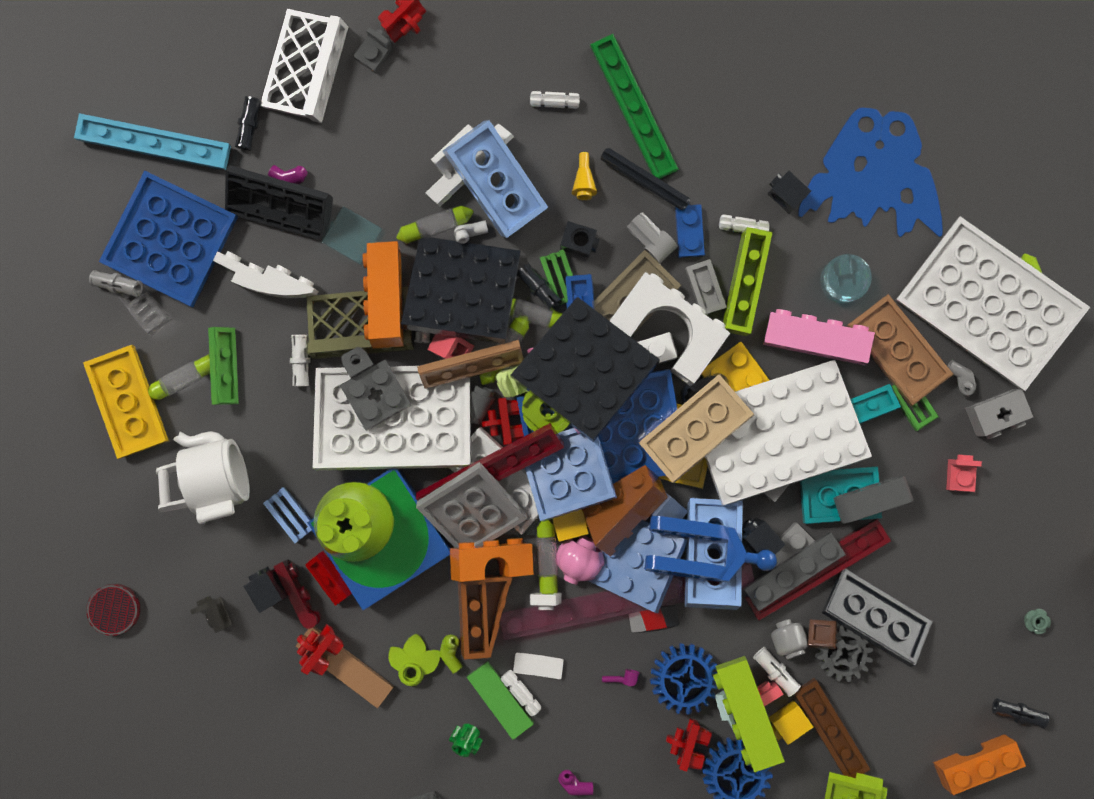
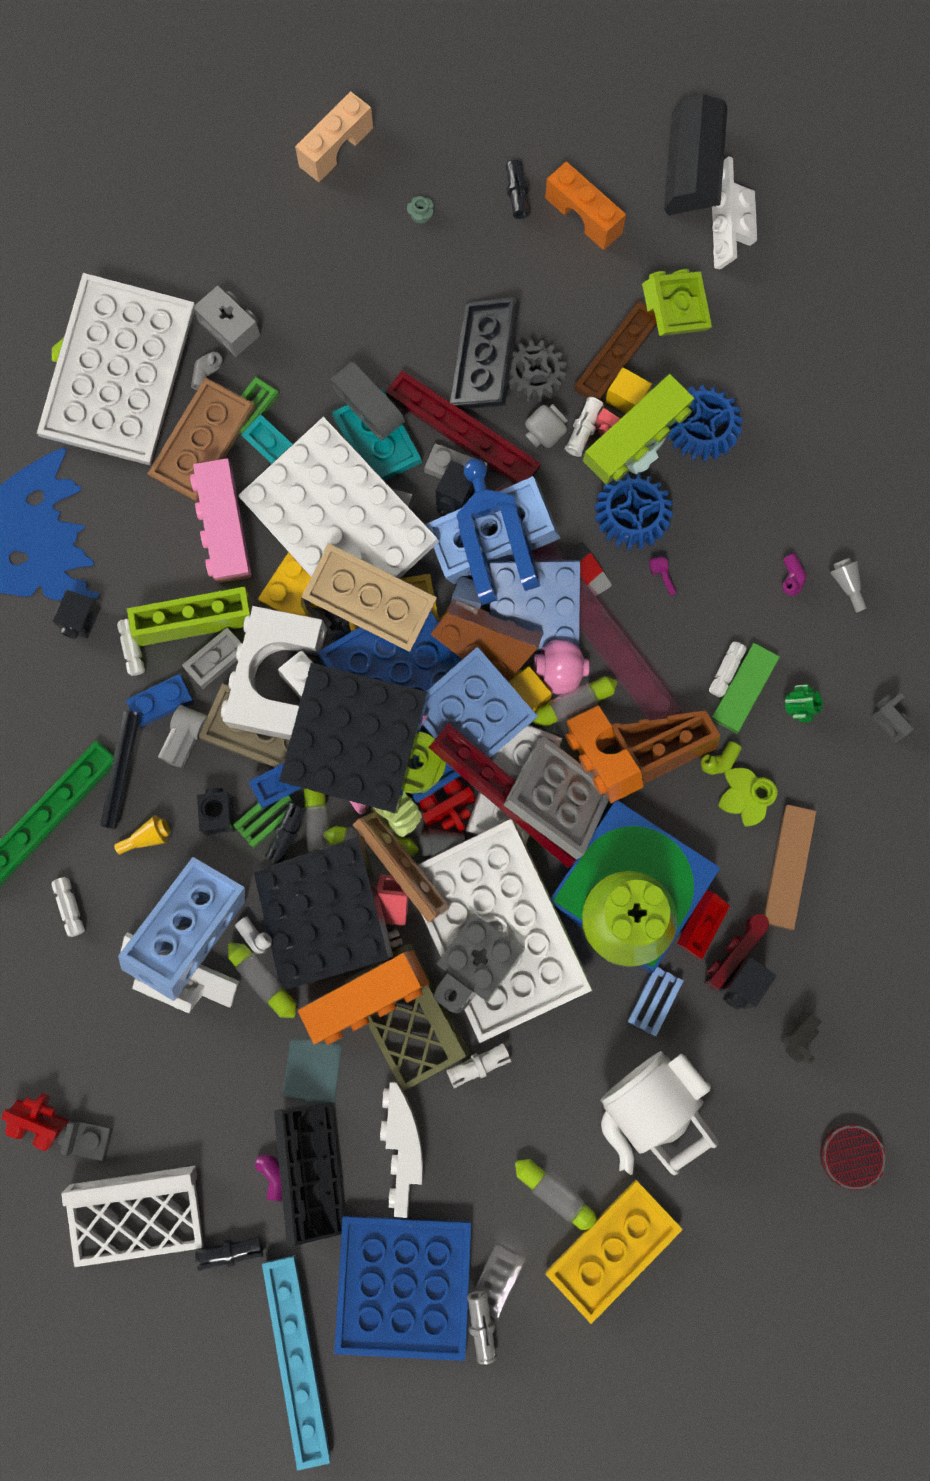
camera: 110 degrees left, 10 degrees down
(223, 366) = (522, 1152): bright green tile -> none
(314, 647) = (785, 903): red hips -> none
(538, 665) = (690, 664): white sticker -> none
(545, 601) = (620, 680): white plate -> none
(687, 757) = (701, 483): red hips -> none
(794, 571) = (470, 444): dark grey plate -> none
(822, 634) = (525, 395): reddish brown tile -> none
(845, 278) = (147, 521): clear light blue head -> none
(962, 473) = (304, 332): coral bracket -> none

